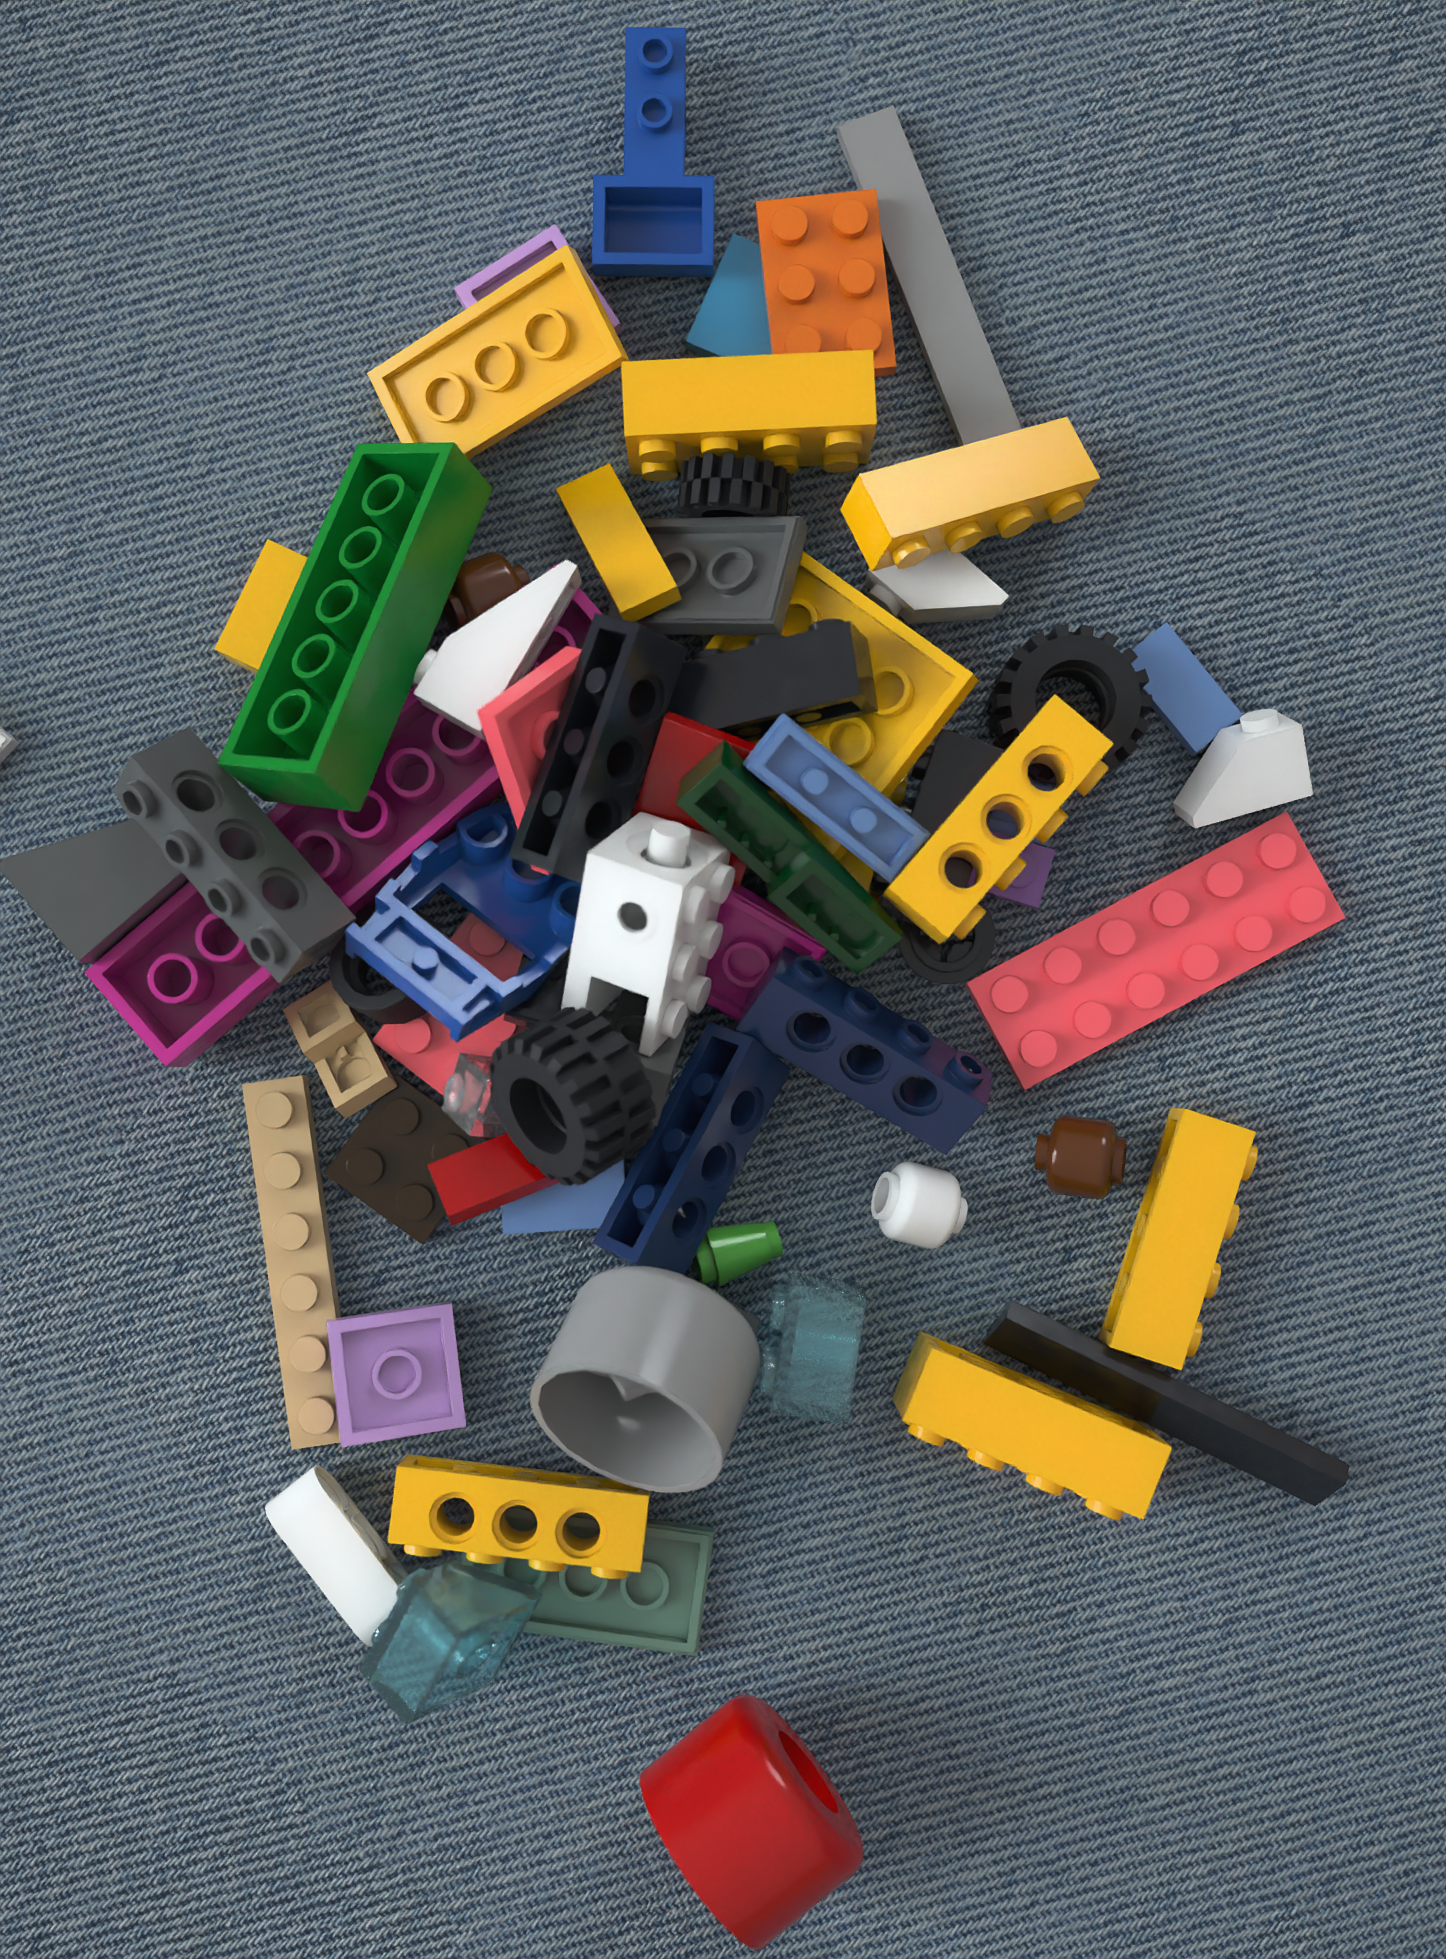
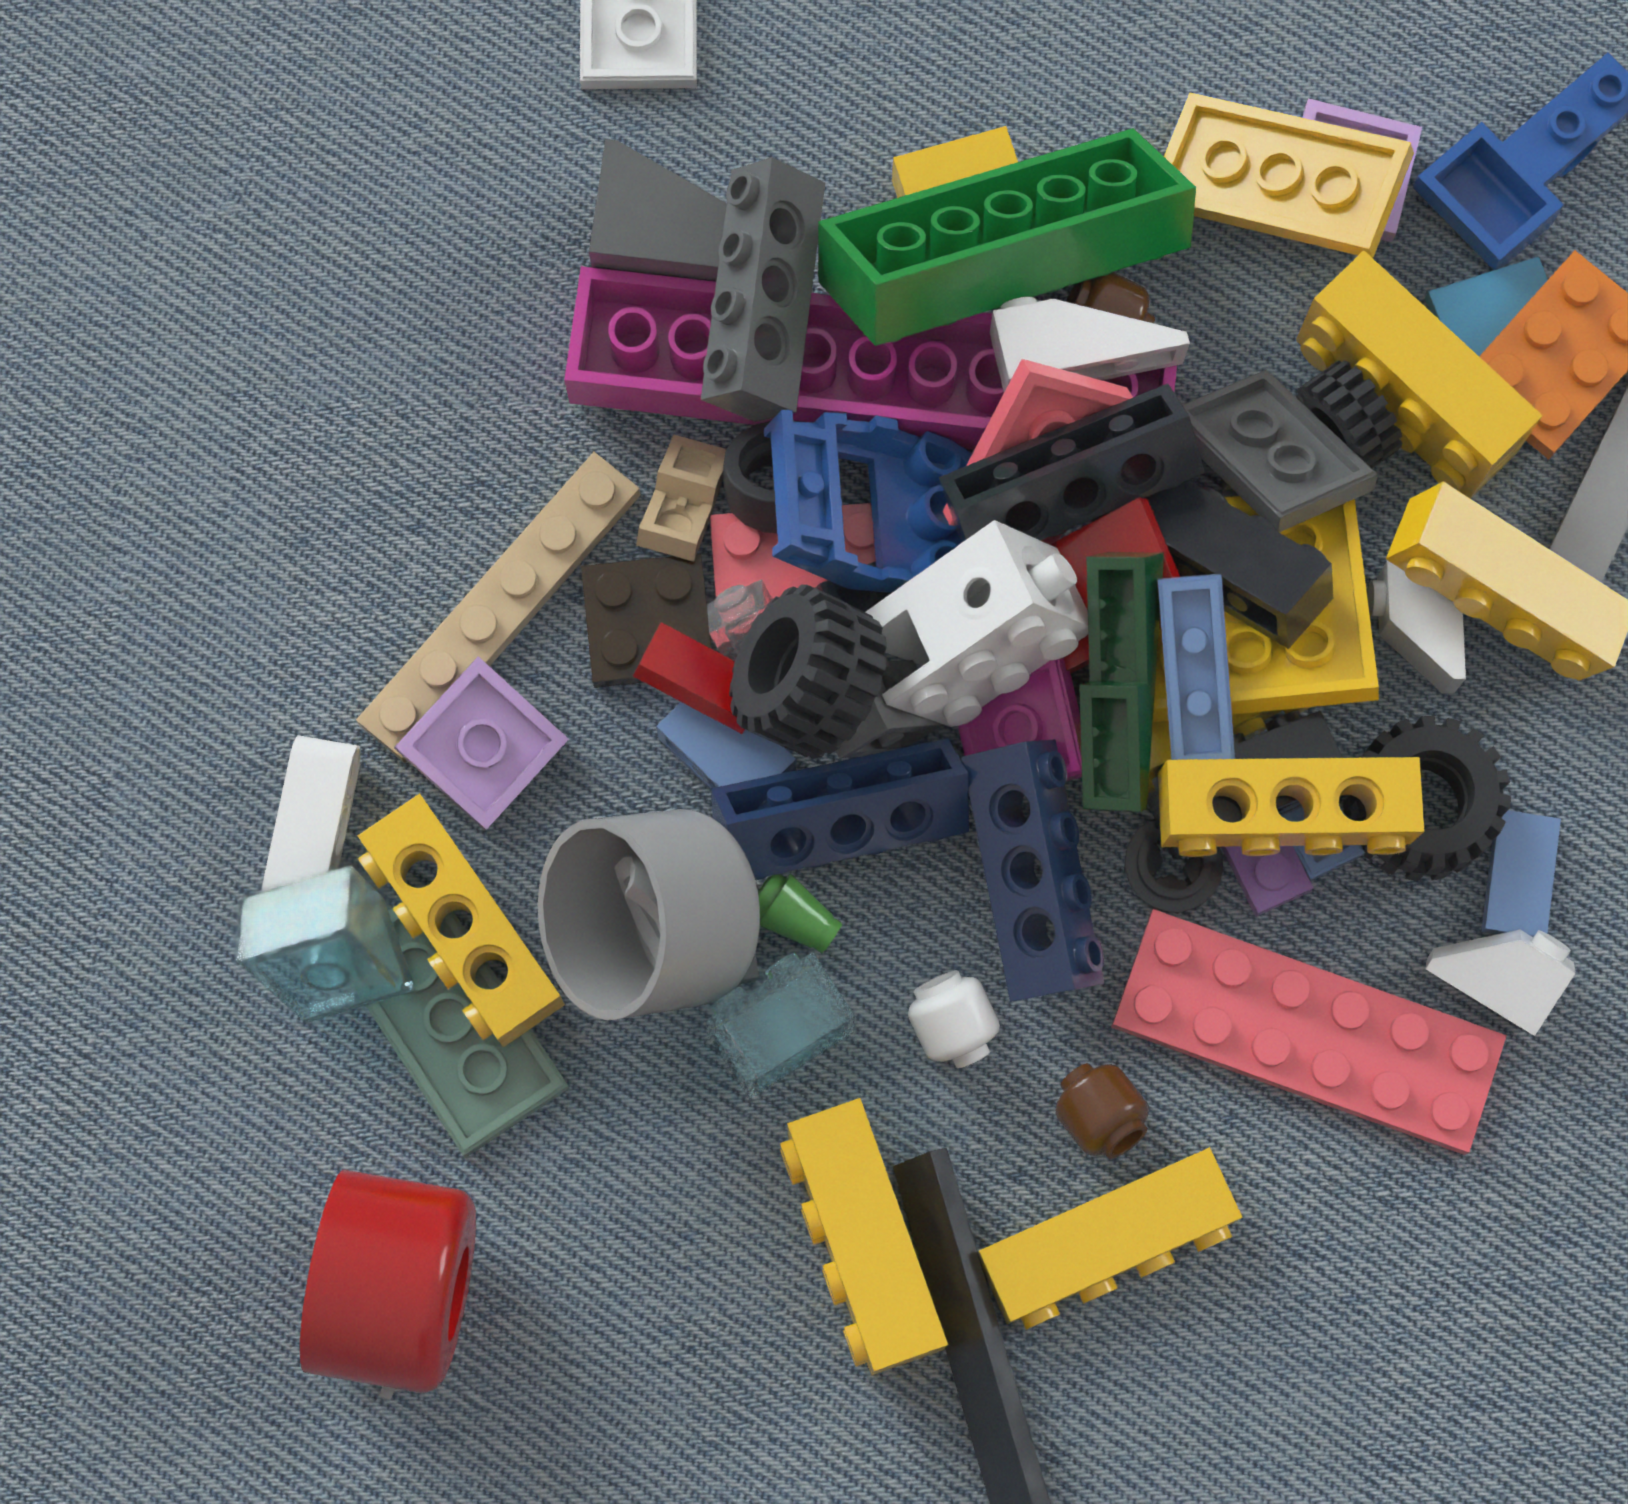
camera: 45 degrees right, 10 degrees down
(618, 544) = (1235, 369): yellow tile -> none

